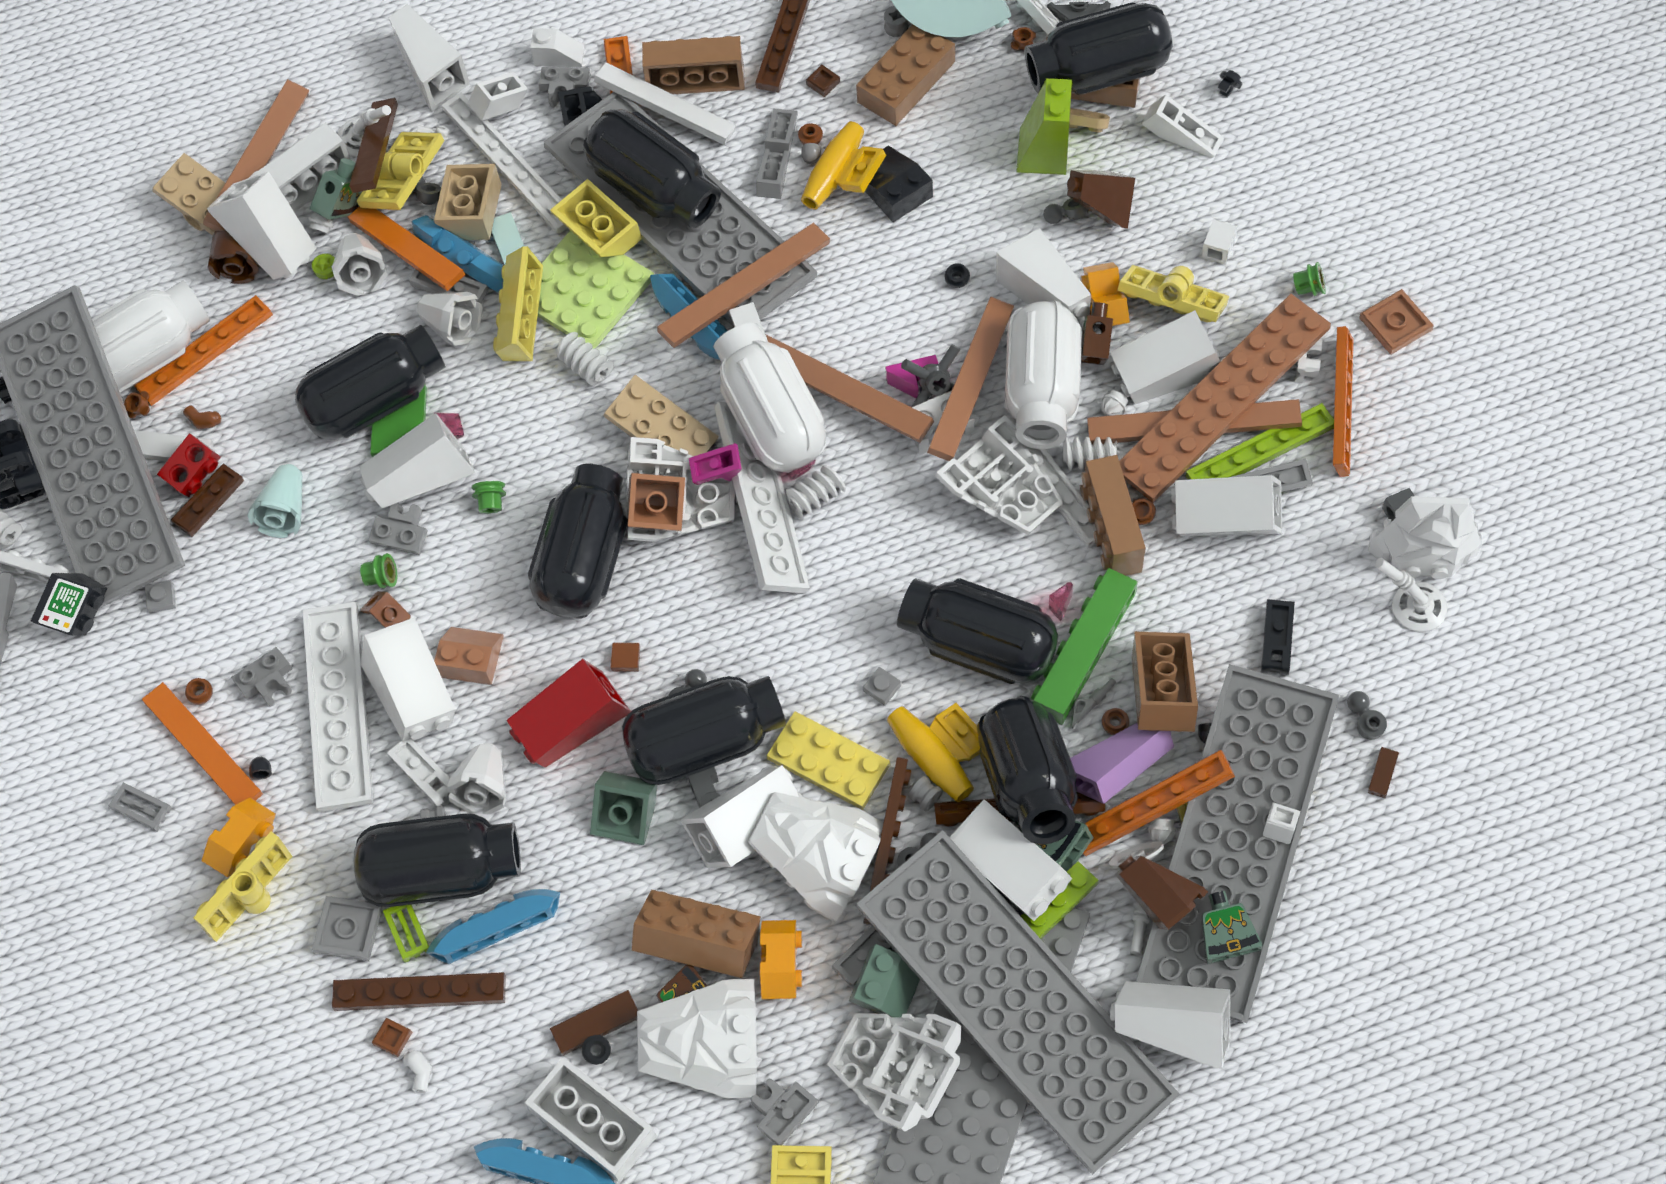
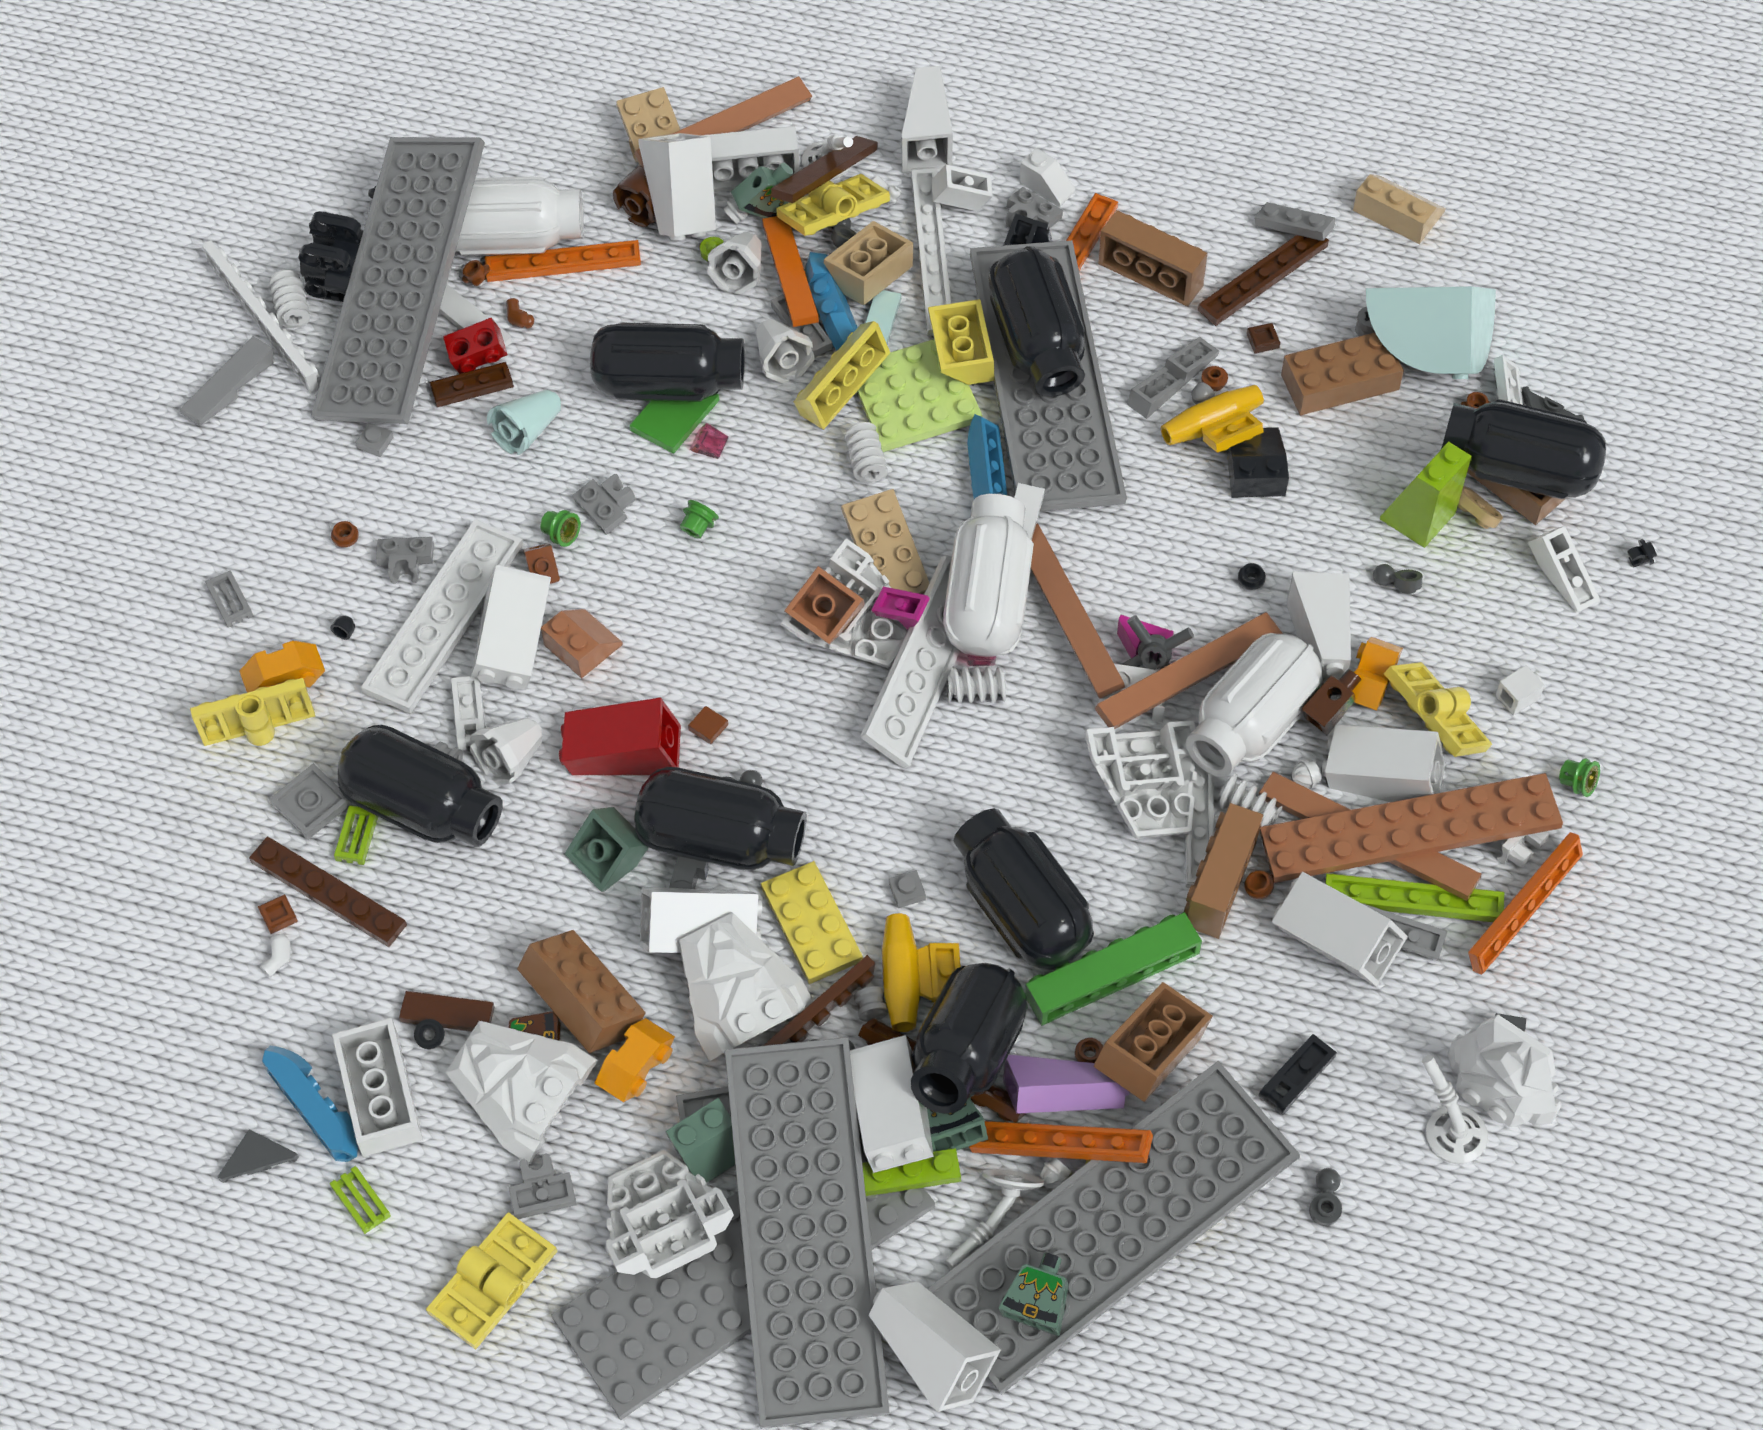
camera: 30 degrees right, 5 degrees down
(69, 603) = (294, 398): slope -> none
(201, 745) = (313, 579): orange tile -> none
(415, 464) = (656, 454): white slope -> none
(494, 926) = (429, 877): dark azure brick -> none
(579, 543) = (735, 601): black piece -> none
(665, 103) = (1103, 277): white tile -> none
(743, 285) = (1049, 469): nougat tile -> none
(1060, 600) = (1122, 915): clear pink slope -> none
(1096, 697) = (1080, 1022): light grey hand -> none
(1103, 193) = (1436, 578): reddish brown slope -> none
(1158, 890) = (1000, 1217): reddish brown slope -> none
(1281, 823) = (1159, 1233): white slope -> none
(1383, 772) = (1303, 1259): reddish brown piece -> none
(1396, 321) = (1638, 864): nougat tile -> none

